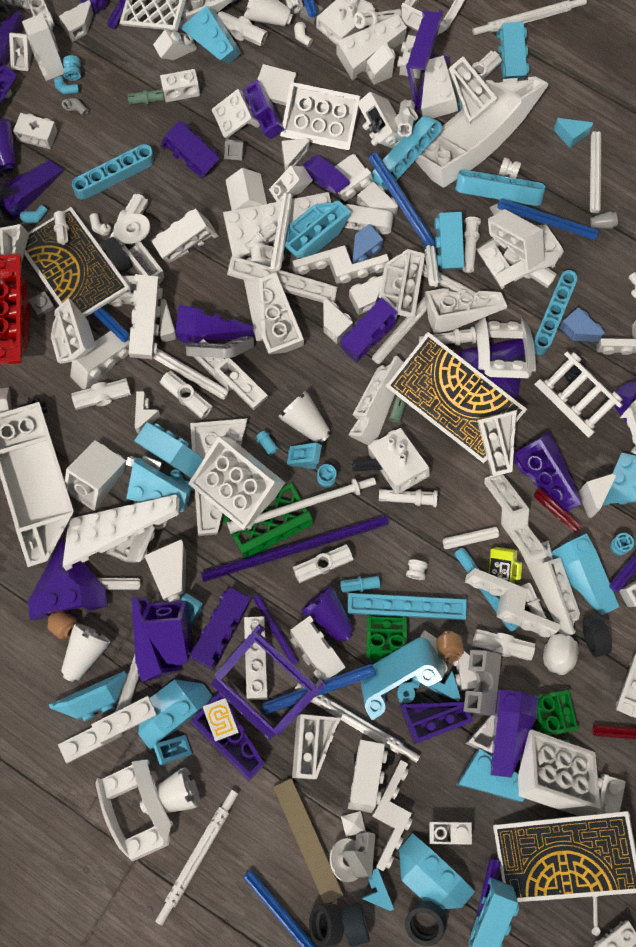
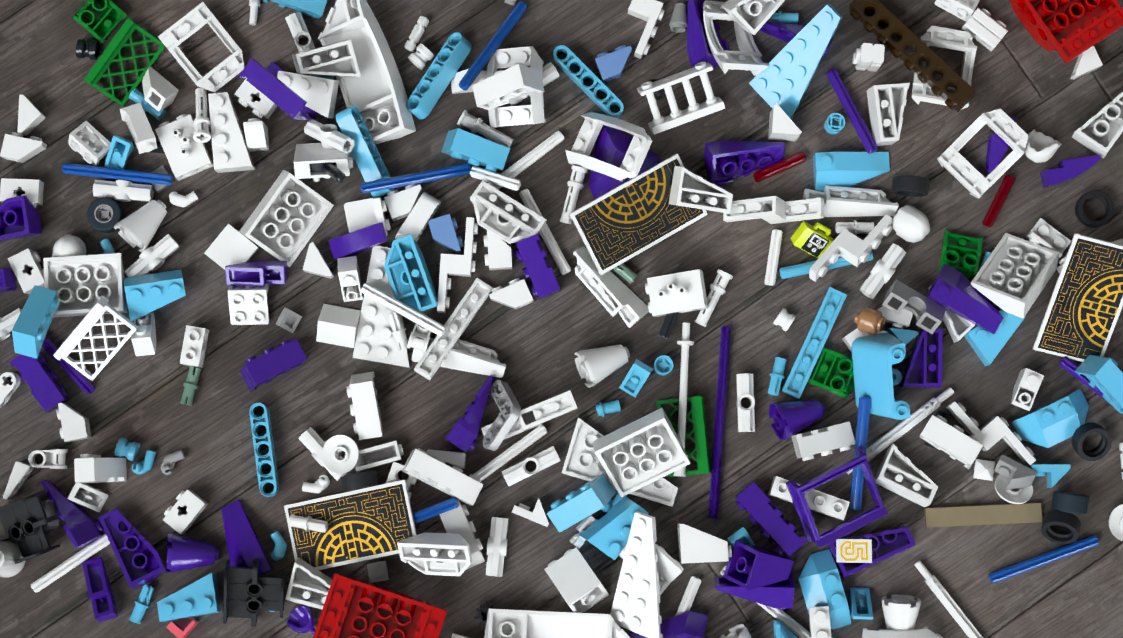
camera: 65 degrees left, 10 degrees up
(275, 630) = (788, 470): dark purple bar -> none
(278, 323) = (495, 350): white wedge -> none
(455, 309) = (548, 173): white wedge -> none
(528, 159) = (416, 33): none -> white axle

